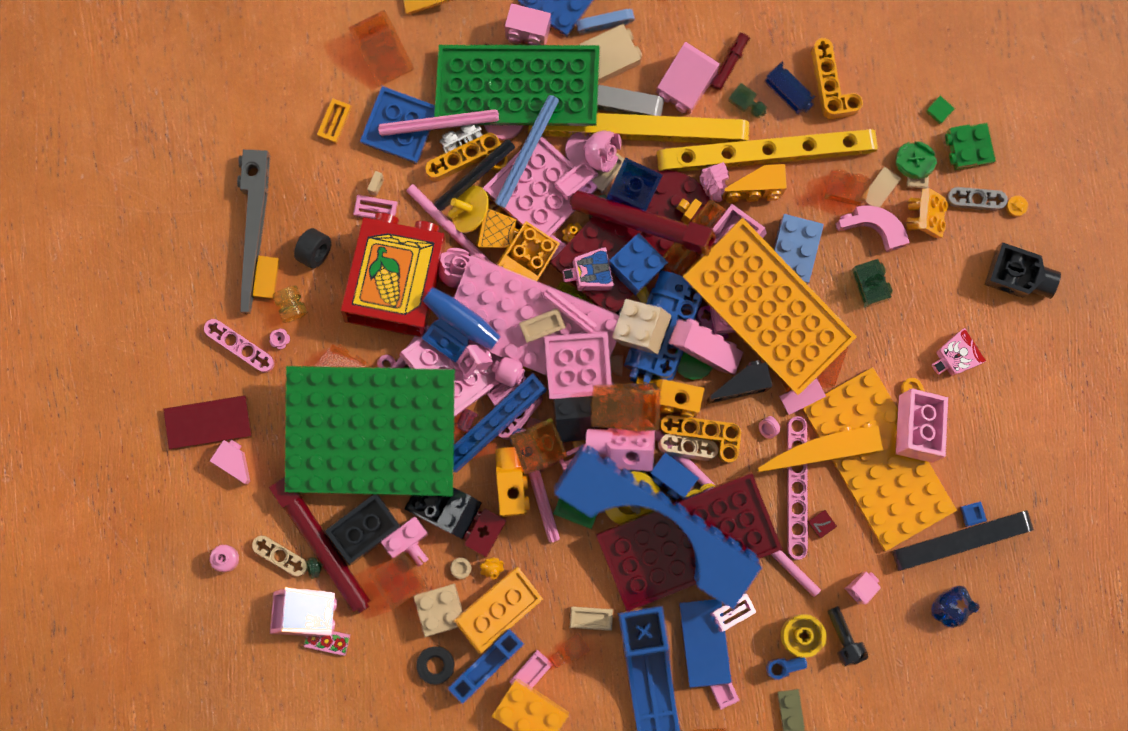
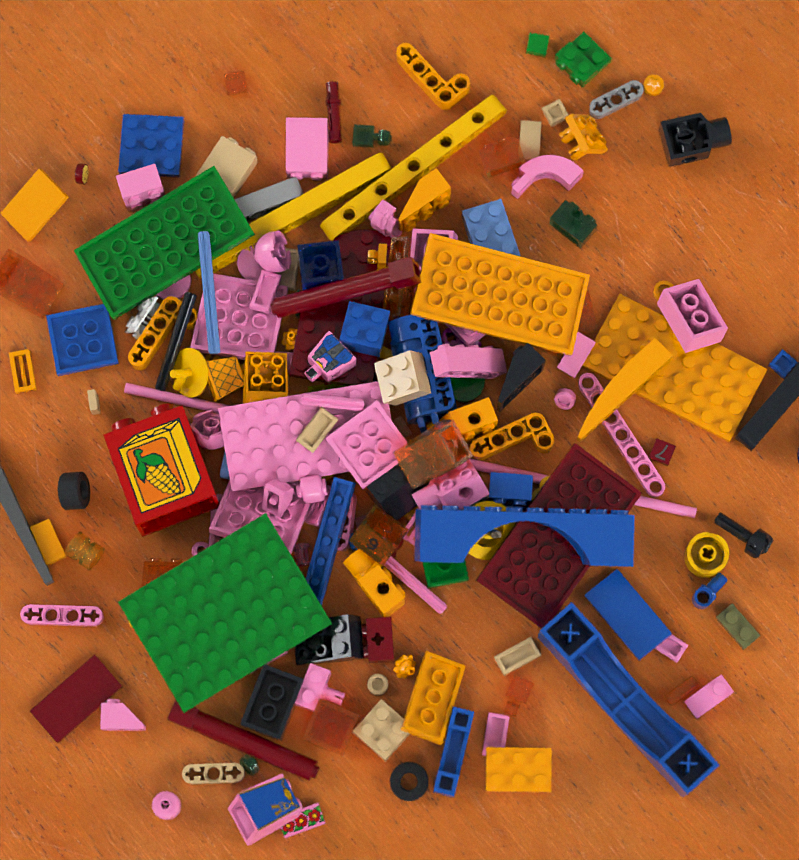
camera: 25 degrees left, 5 degrees down
(274, 338) = (93, 581): bright pink plate -> none
(371, 208) = (100, 418): bright pink tile -> none
(438, 122) = (116, 315): bright pink axle -> none
(456, 326) = (243, 476): blue plate -> none
(605, 21) = (205, 143): medium blue beam -> none
(701, 455) = (513, 451): tan beam -> none
(719, 620) = (627, 586): tile -> none
(789, 89) = (399, 104): clear blue window -> none
(863, 587) = (731, 483): bright pink slope -> none
(916, 160) = (544, 98): green tile -> none
(958, 355) = (685, 238): torso -> none

